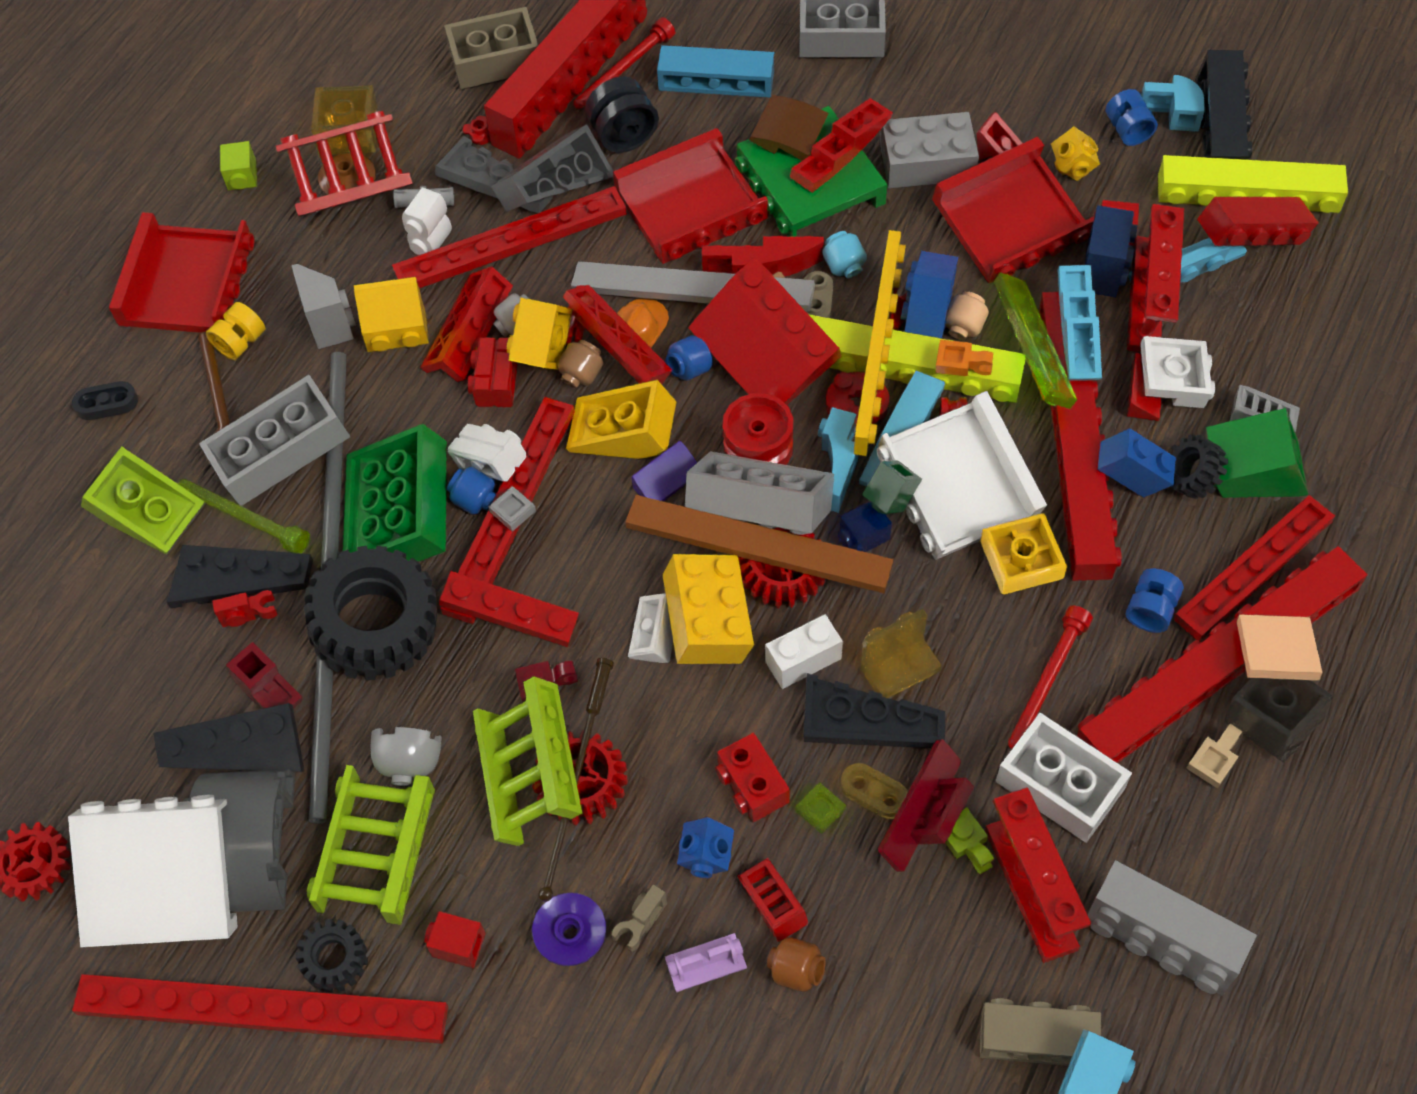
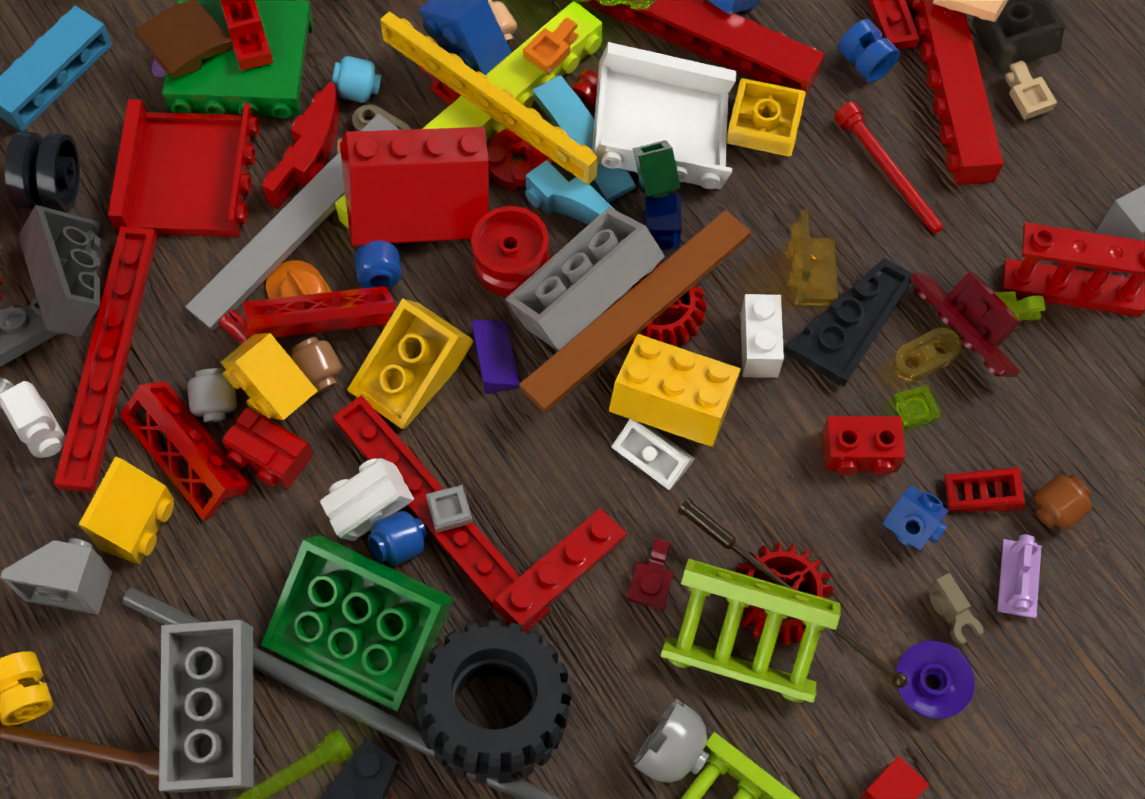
camera: 65 degrees left, 5 degrees up
(1064, 775) = (995, 202): white brick -> none

